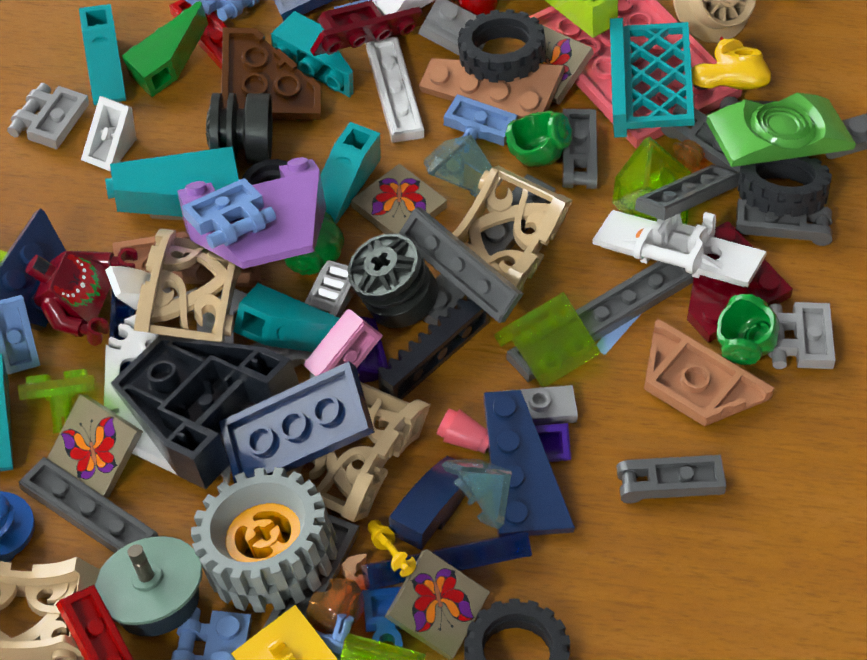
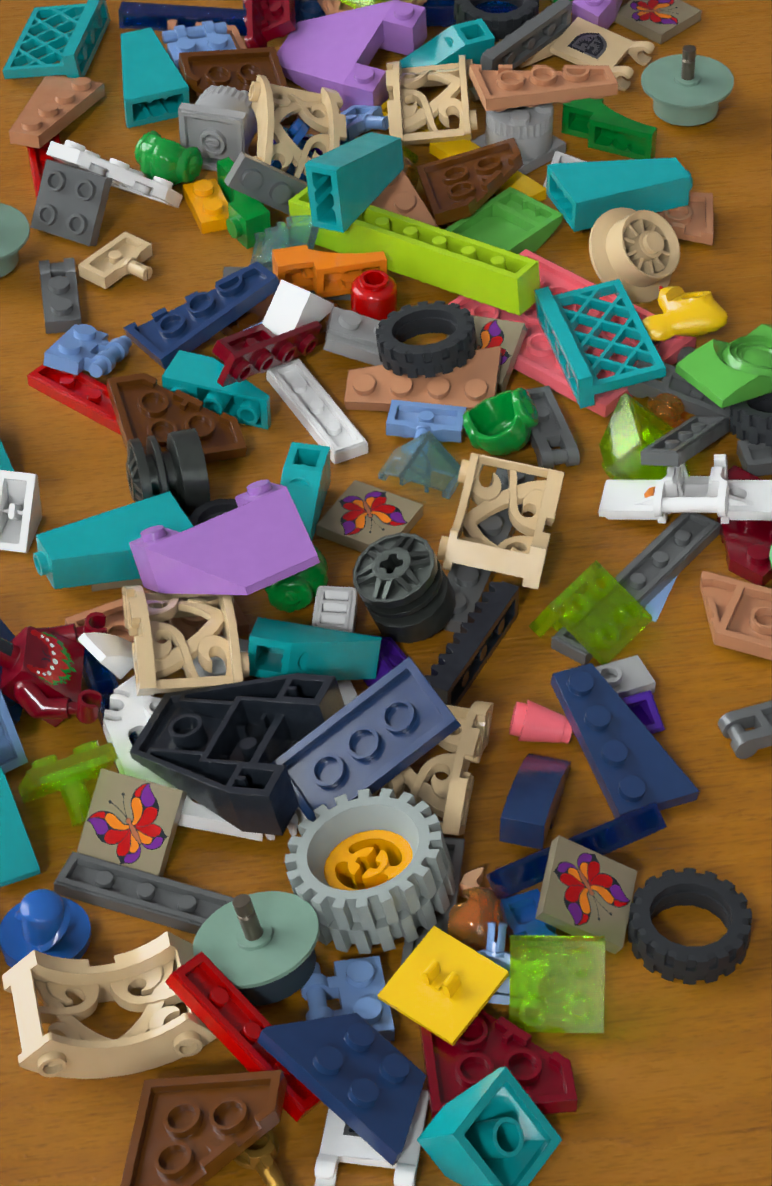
camera: 15 degrees left, 10 degrees down
(164, 54) = (43, 423): green slope -> none
(224, 206) = (201, 543): medium blue plate -> none
(347, 341) = (378, 653): bright pink slope -> none
(383, 539) = (498, 845): yellow piece -> none
(461, 265) = (480, 554): dark grey tile -> none
(484, 484) = (591, 766): clear light blue slope -> none

